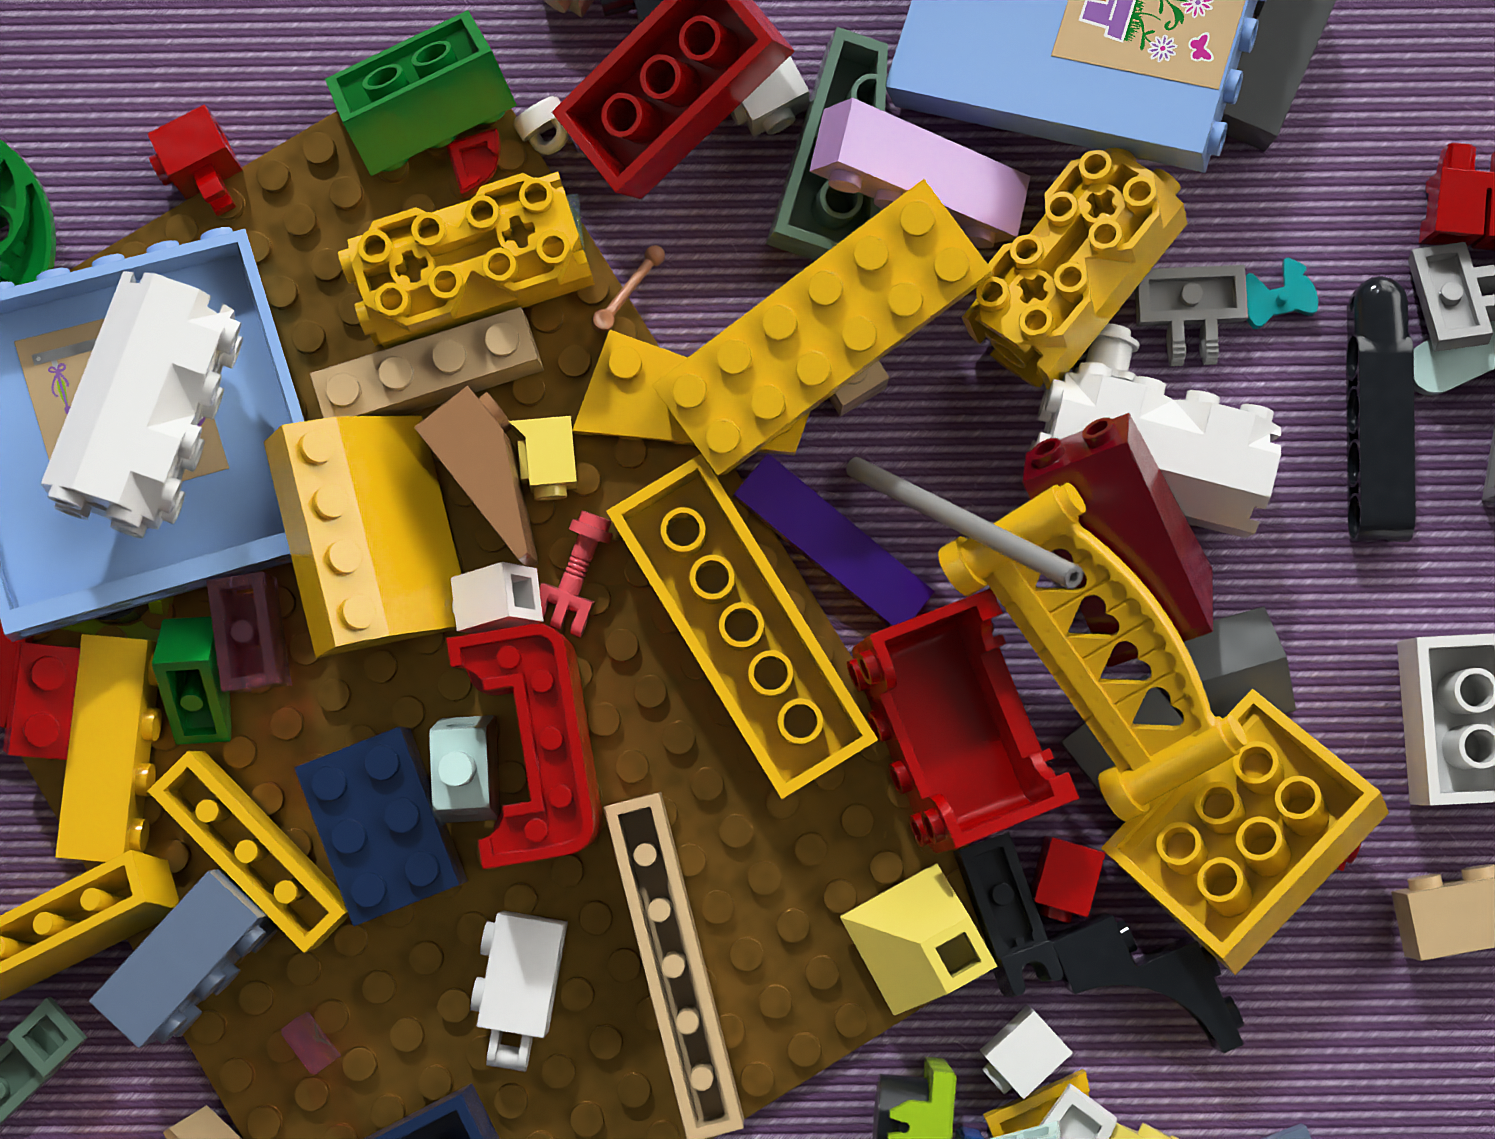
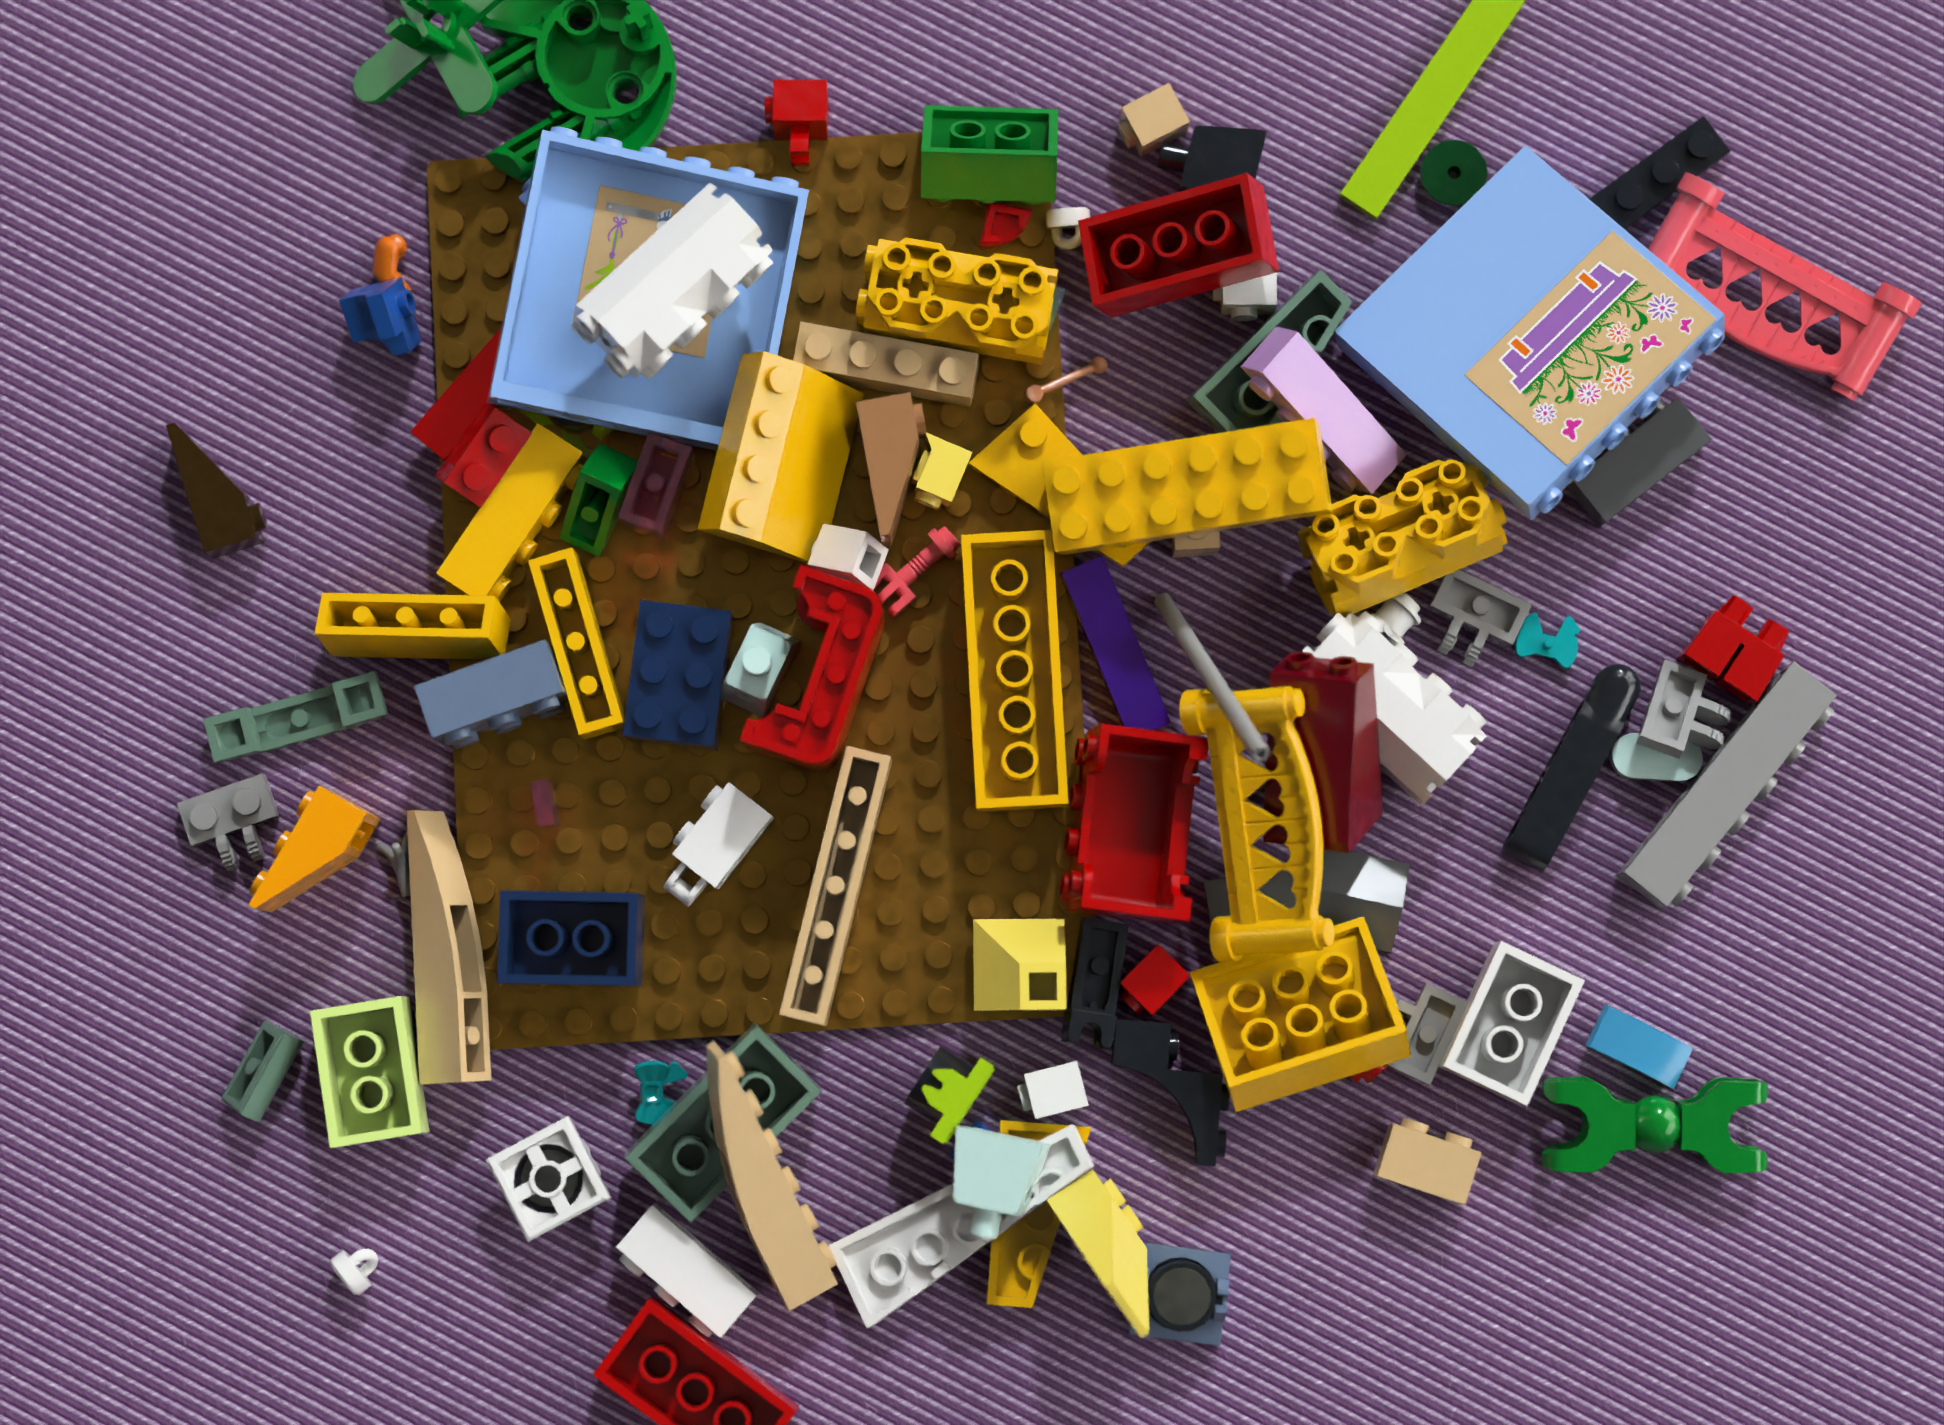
camera: 30 degrees right, 0 degrees up
(1384, 758) = (1429, 1031): none -> light grey hinge

